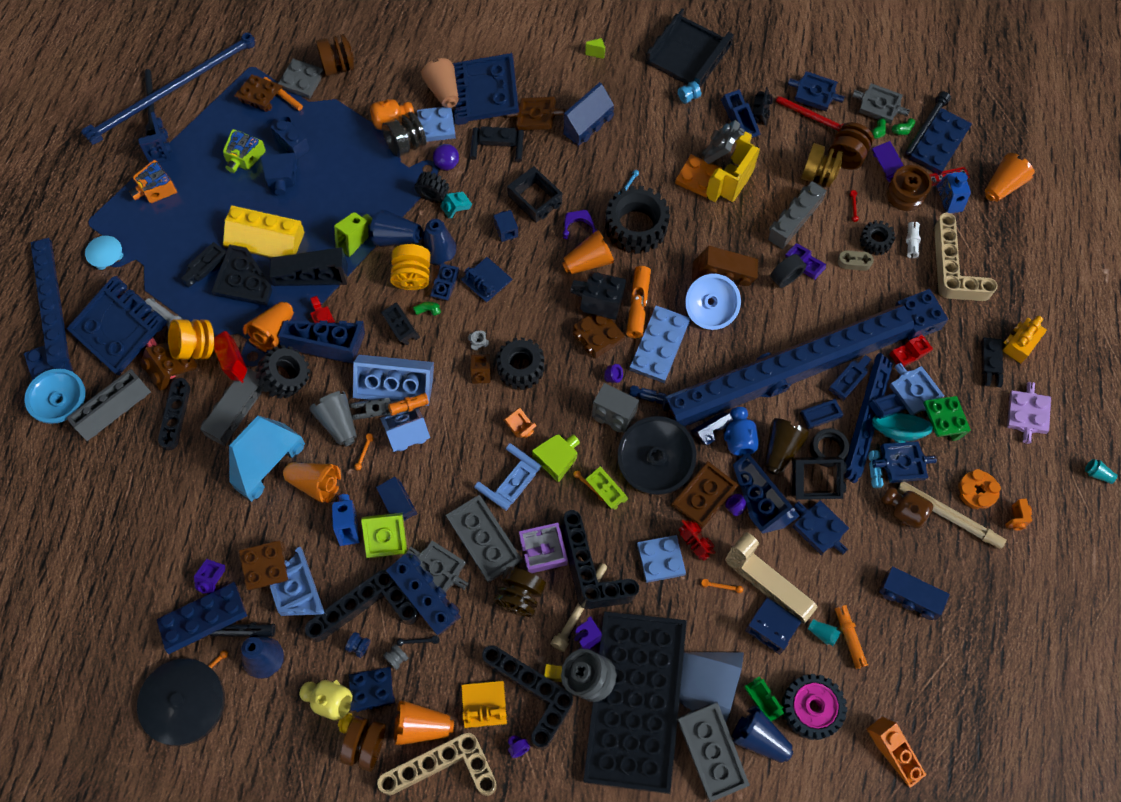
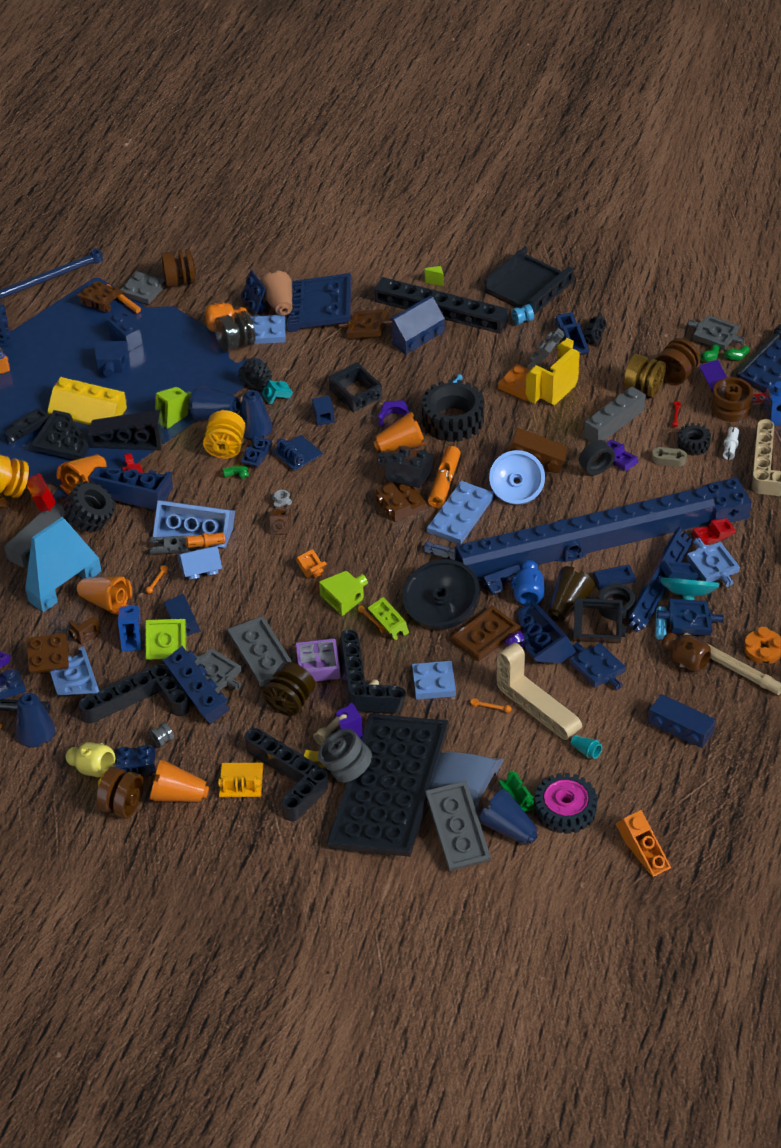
camera: 10 degrees right, 20 degrees down
(242, 151) = (77, 339): torso -> none
(299, 527) = (84, 631): none -> reddish brown bracket
(336, 417) = (133, 545): dark grey cone -> none
(357, 644) = (127, 723): dark blue wheel -> none
(400, 323) = (208, 479): black hinge -> none
(417, 84) = (253, 294): none -> dark blue hinge
(435, 640) = (201, 728): black hinge -> none
(440, 764) = (190, 816): tan beam -> none
(446, 157) = (273, 354): dark purple hair -> none
(497, 137) = (327, 342): black plate -> none
(515, 482) = (299, 610): medium blue plate -> none
(519, 748) = (268, 813): dark purple tile -> none
(520, 377) = (319, 516): black tyre -> none
(613, 373) = (410, 531): dark purple tile -> none
(614, 408) = (404, 552): dark grey brick -> none
(619, 87) = (452, 307): none -> black brick
(692, 529) = (470, 664): red hinge -> none
(773, 626) = (534, 738): dark blue bracket -> none
(816, 91) = (651, 319): dark blue plate -> none
(832, 124) = (638, 336): red piece -> none
(850, 378) = (647, 548): dark blue hinge -> none
(851, 637) = (611, 745): orange pin -> none
(947, 417) = (737, 578): green bracket -> none

